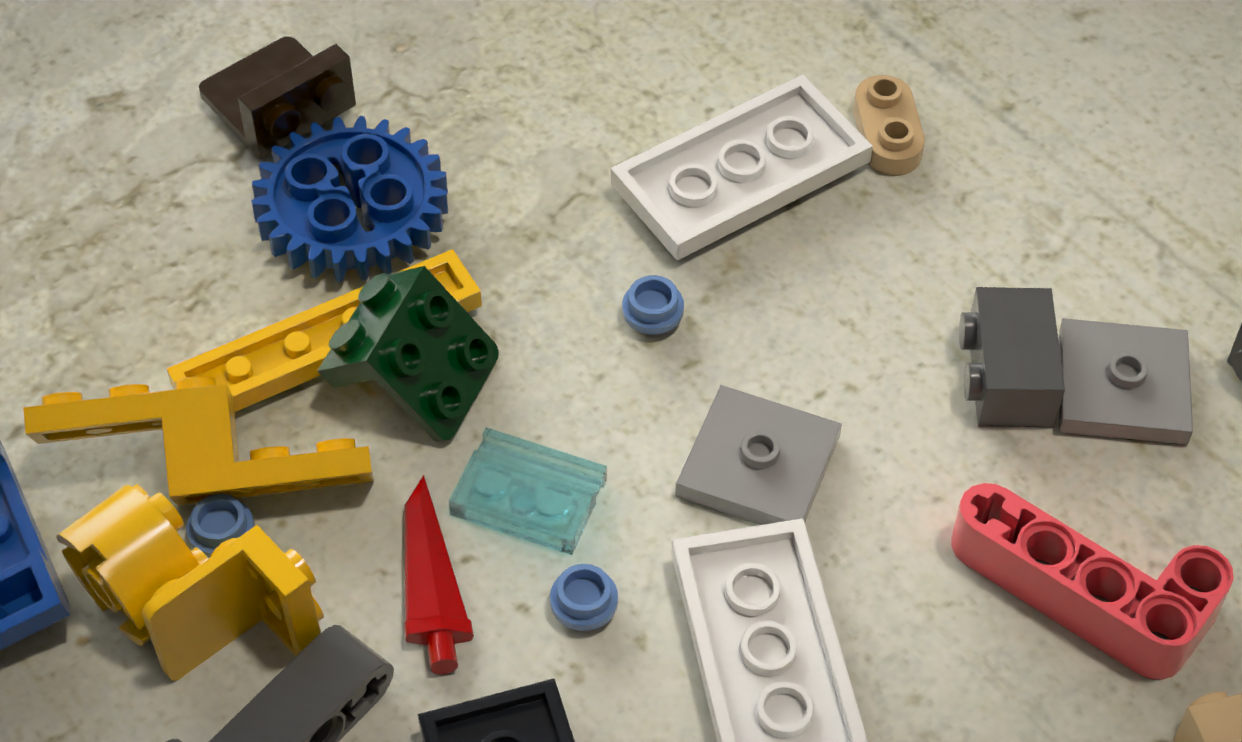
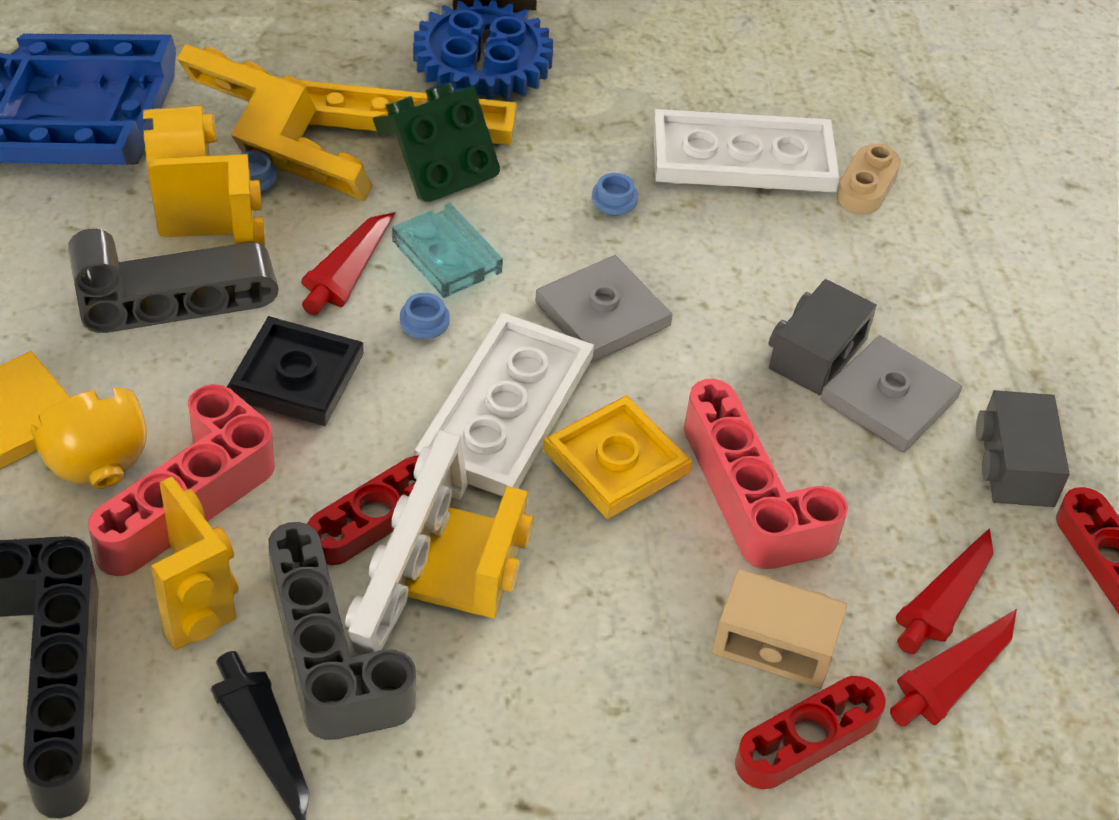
camera: 30 degrees right, 5 degrees down
(934, 642) = (617, 456): none -> yellow plate

